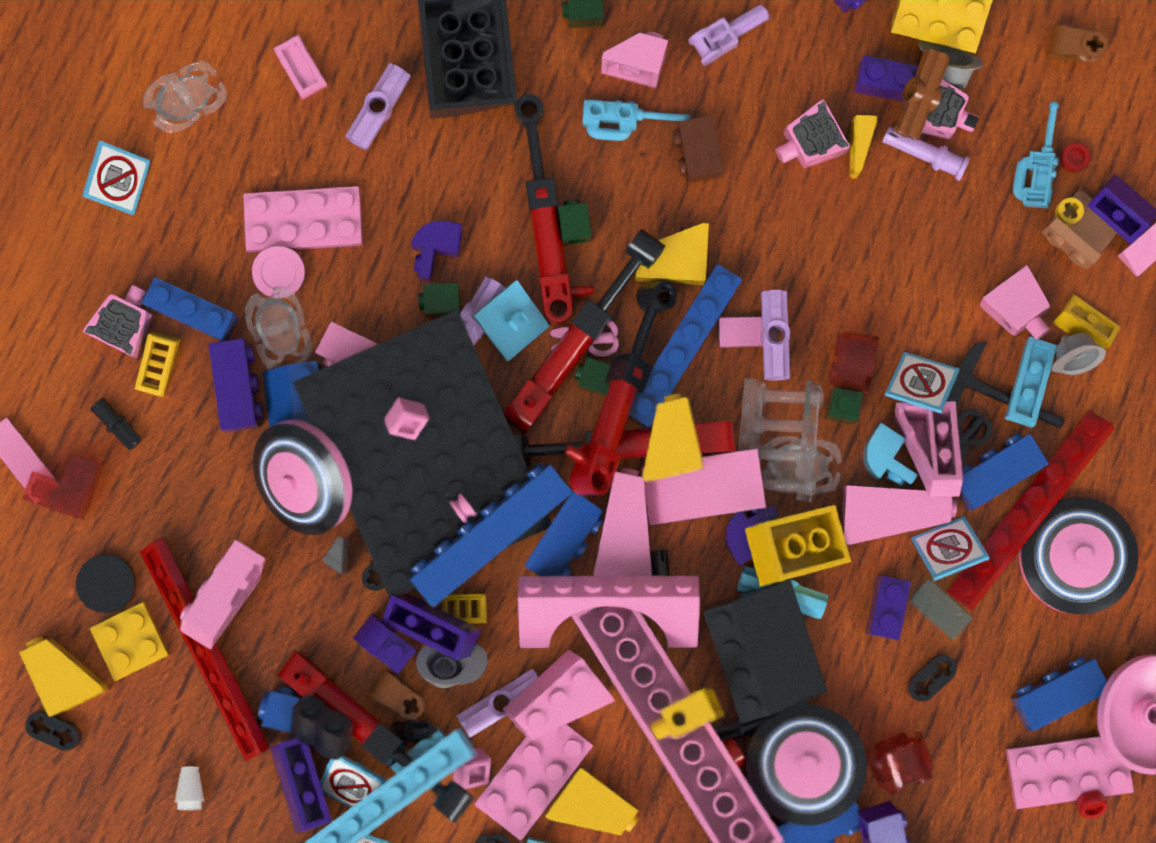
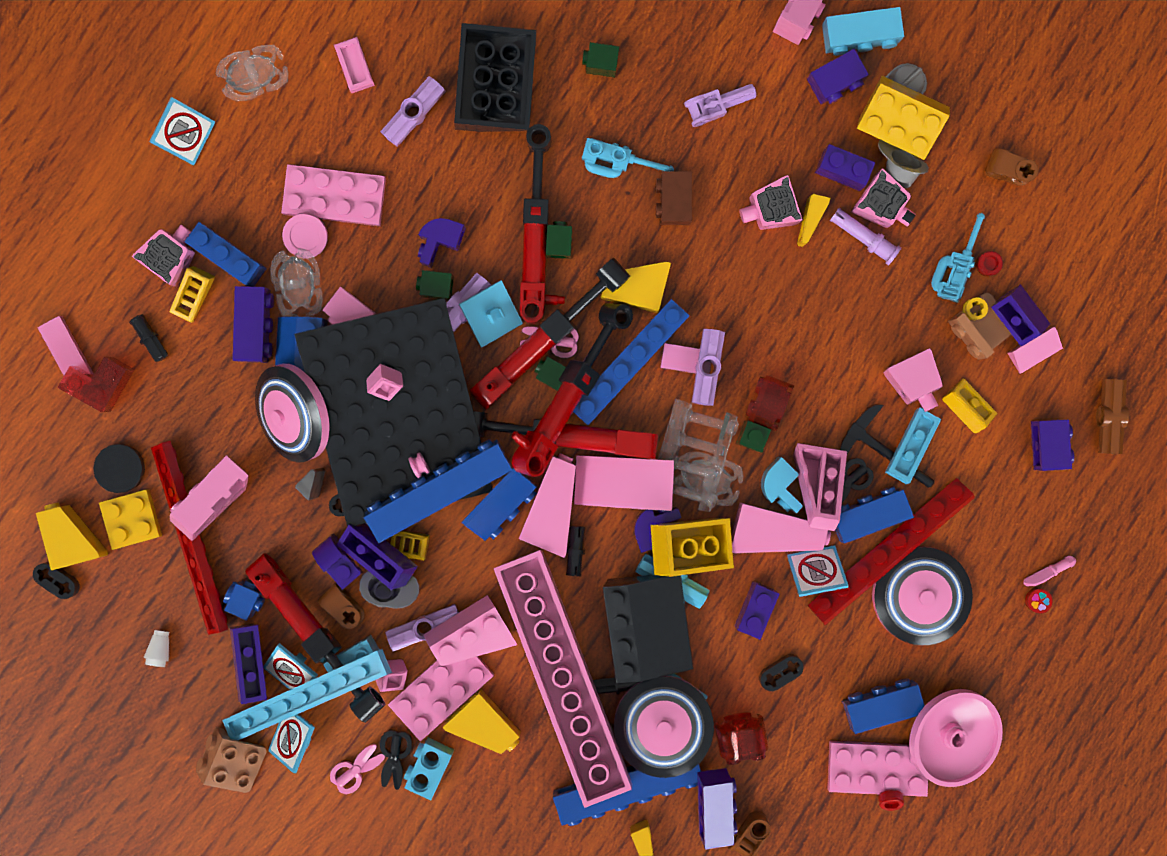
camera: 15 degrees right, 5 degrees up
(321, 727) = (271, 622): black brick -> none
(414, 729) = (348, 637): black axle -> none
(552, 599) = (573, 571): bright pink arch -> none
(636, 59) = (637, 111): bright pink slope -> none
(673, 441) = (605, 442): yellow slope -> none
(698, 709) = (581, 672): yellow torso -> none
(734, 751) = (606, 704): red tile -> none
(921, 94) = (872, 186): dark orange piece -> none
(922, 382) = (822, 429): piece -> none
(940, 609) = (799, 618): clear light blue tile -> none
(1077, 354) = (956, 430): light grey piece -> none

